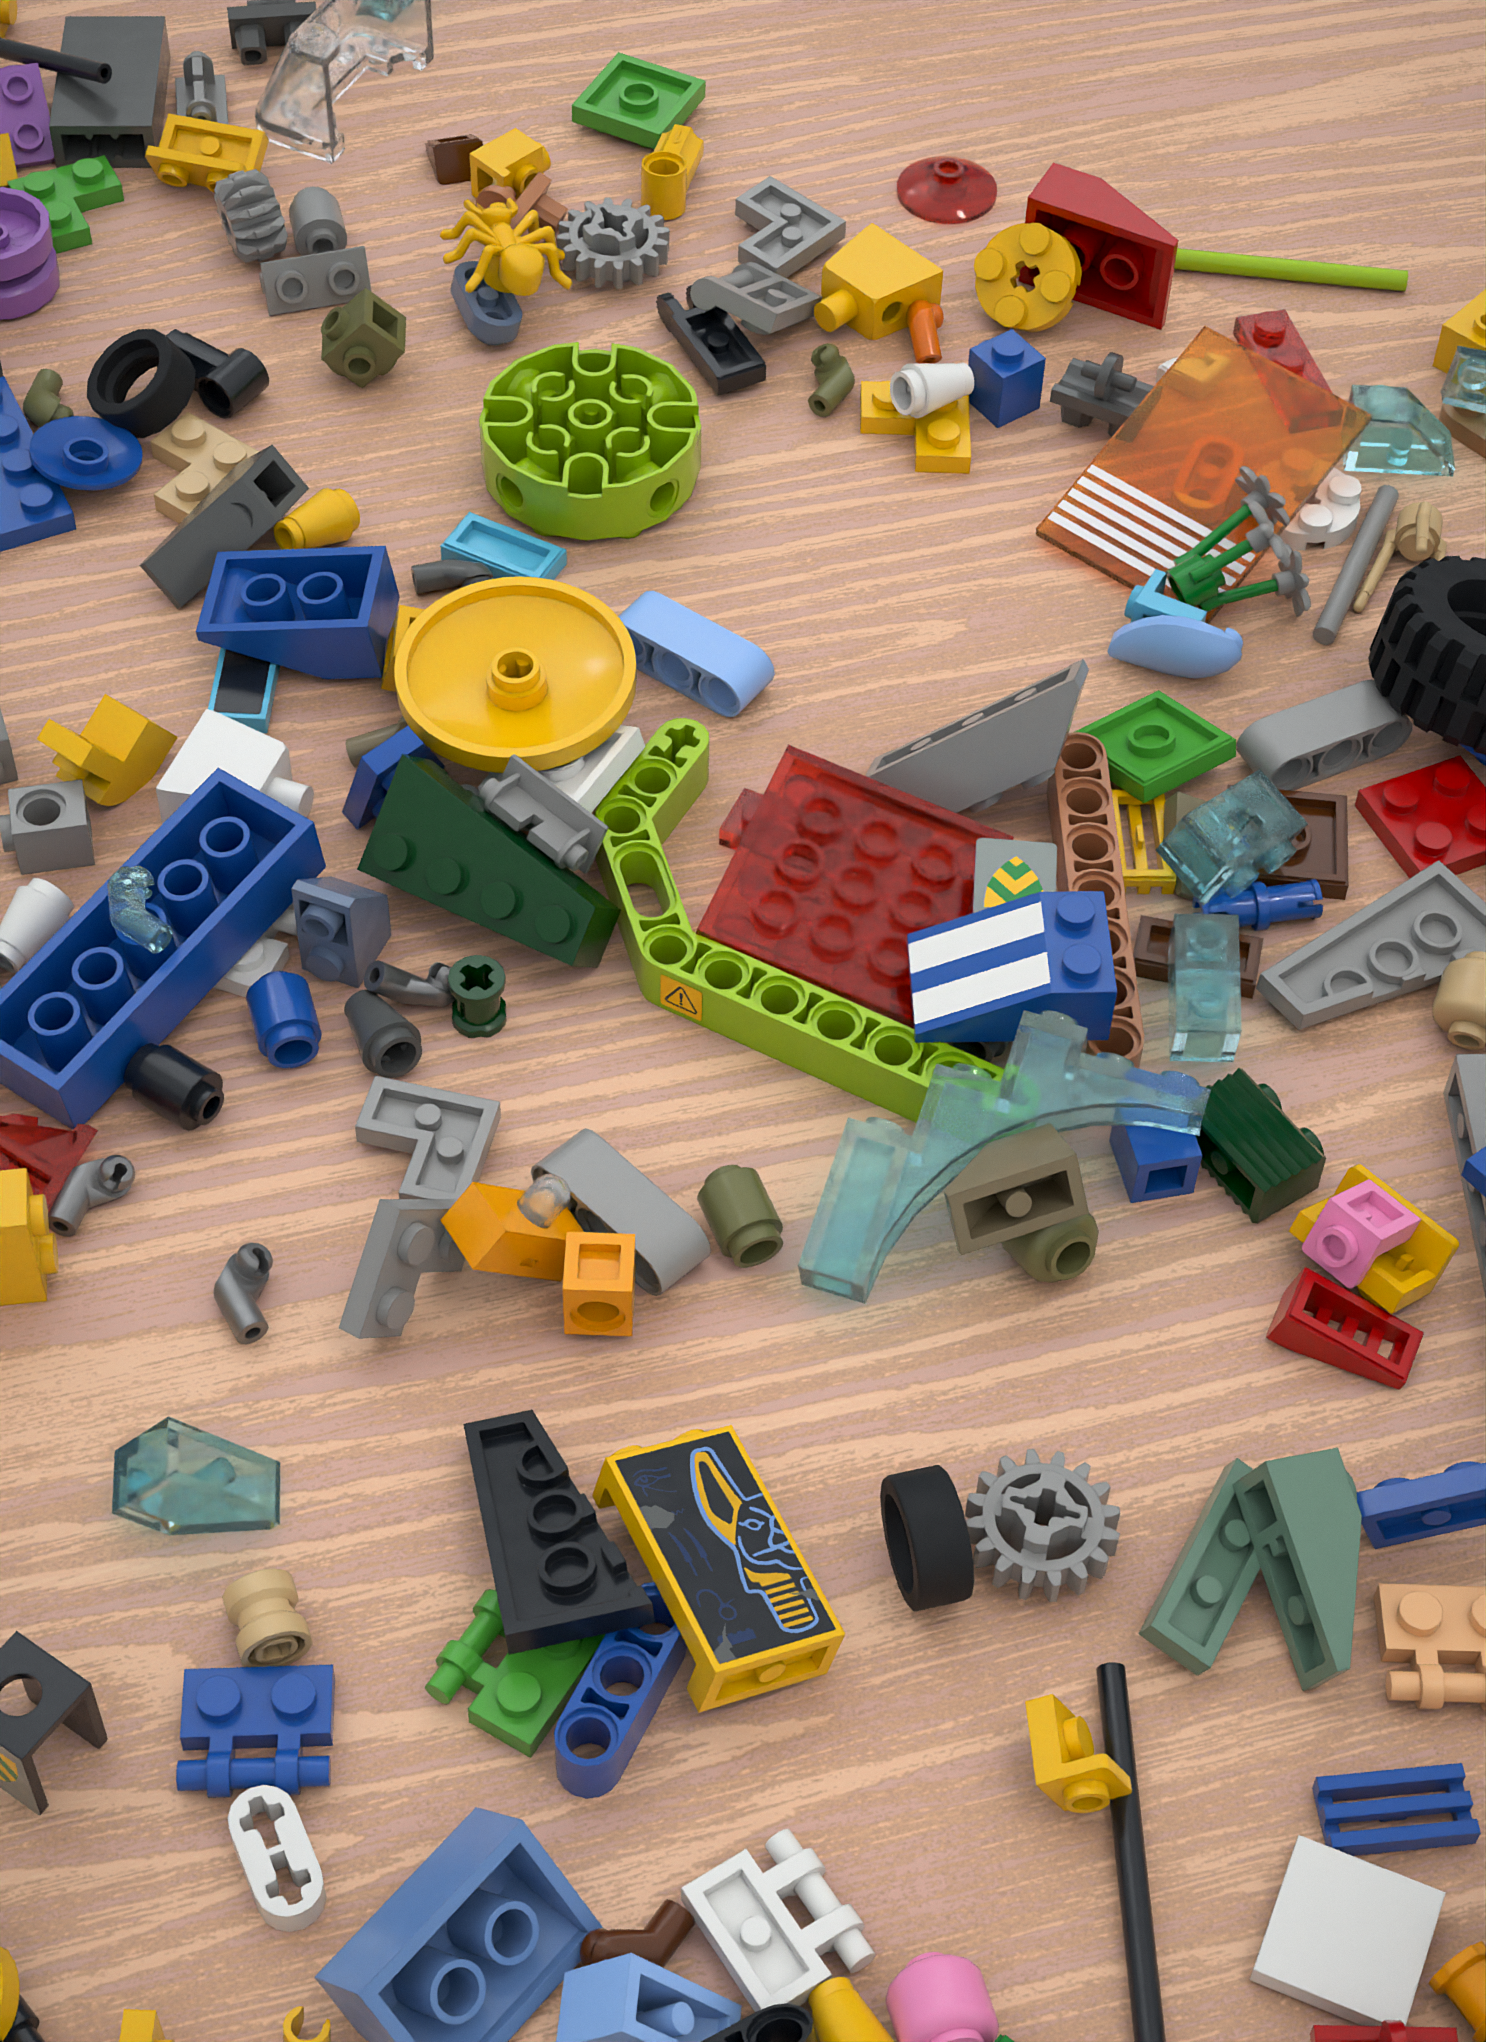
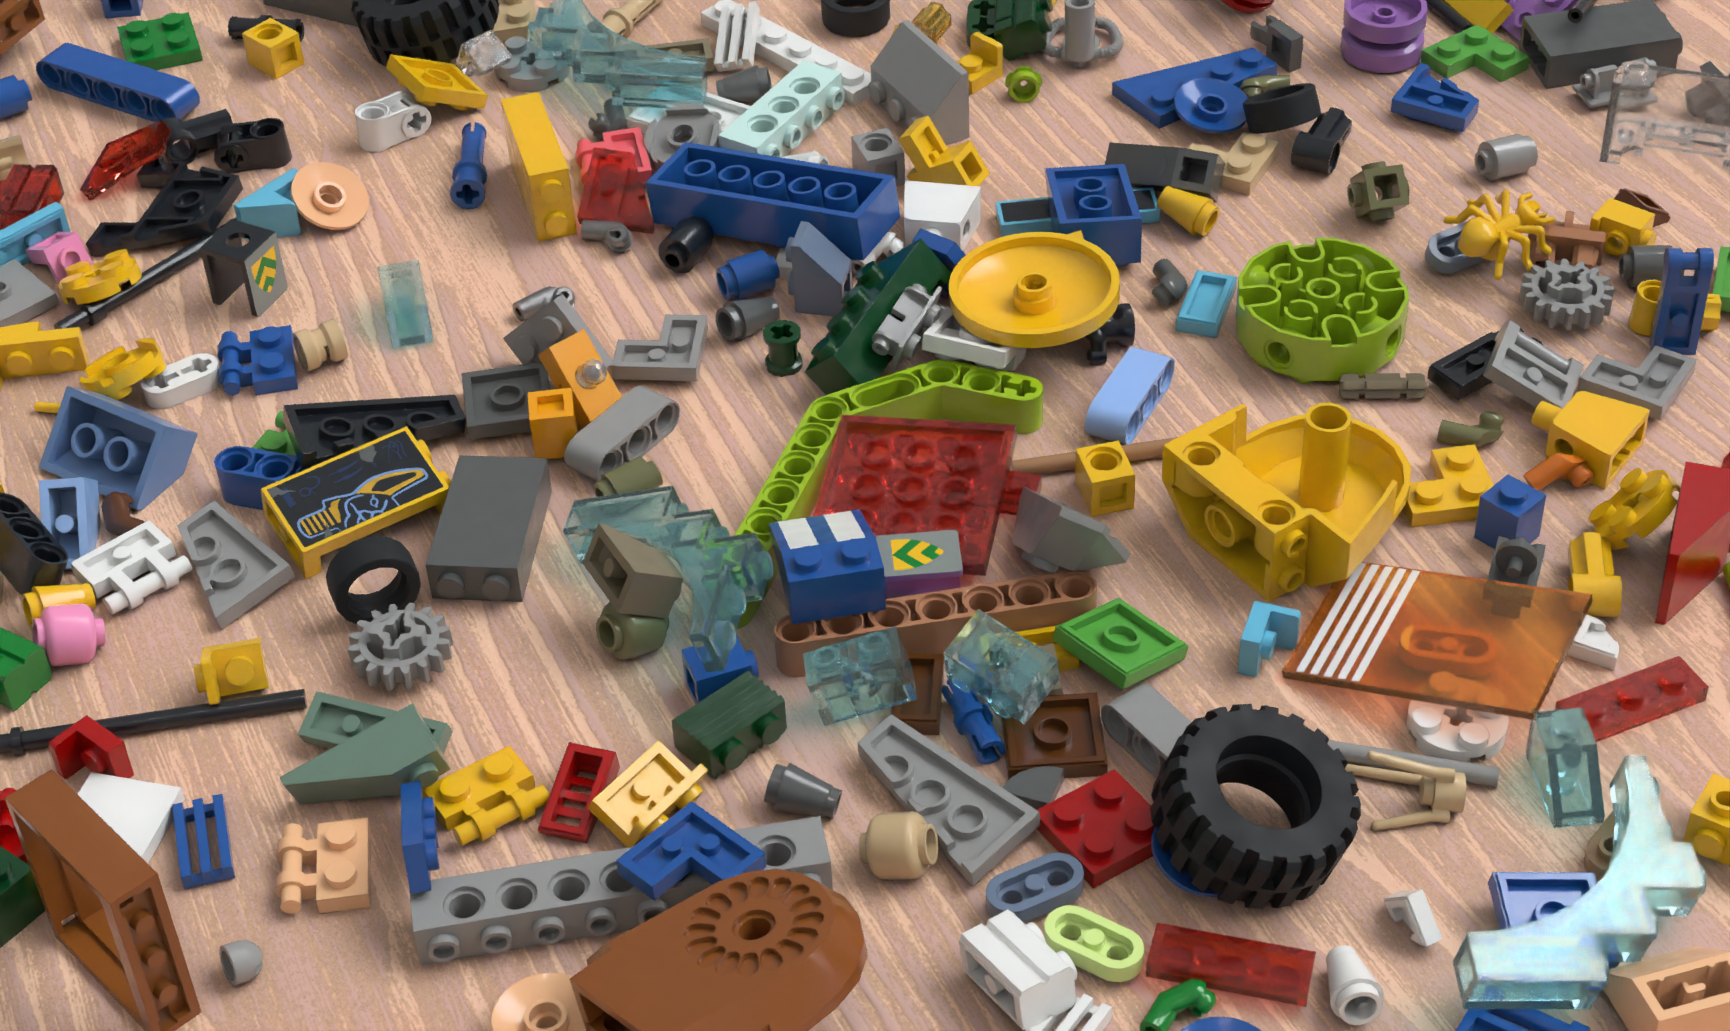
camera: 85 degrees right, 10 degrees down
(128, 909) = (766, 166): clear light blue arm -> none
(160, 256) = (1434, 102): none -> blue wing
(204, 151) = (1552, 98): yellow bracket -> none
(250, 215) = (1483, 117): light grey gear -> none
(292, 1951) = (120, 369): none -> yellow plate
(314, 280) = (1447, 169): light grey hinge -> none
(410, 988) = (786, 310): flat silver arm -> none
(490, 1354) = (499, 399): none -> dark grey plate
(583, 166) = (1643, 264): none -> dark grey brick
(709, 139) = (1682, 300): none -> blue plate
(724, 434) = (1382, 386): none -> dark tan axle
(786, 686) = (1067, 461): none -> medium nougat bar
(791, 1770) = (231, 562): none -> light grey wing
(803, 1391) = (489, 528): none -> dark grey brick
(849, 704) = (1105, 478): none -> yellow brick
(929, 386) = (1458, 463): white cone -> none
(956, 536) = (1288, 498): none -> yellow animal
(1089, 339) = (1594, 574): none -> yellow piece
(1177, 646) = (1227, 646): light blue arm -> none
(1198, 579) = (1309, 641): plant -> none
(1213, 1962) = (90, 746): none -> red bracket
(1308, 1421) = (486, 796): none -> yellow plate
(1356, 1230) = (645, 769): bright pink bracket -> none
(1372, 1091) = (801, 792): none -> dark grey cone
(1374, 868) = (1036, 785): none -> dark grey tile

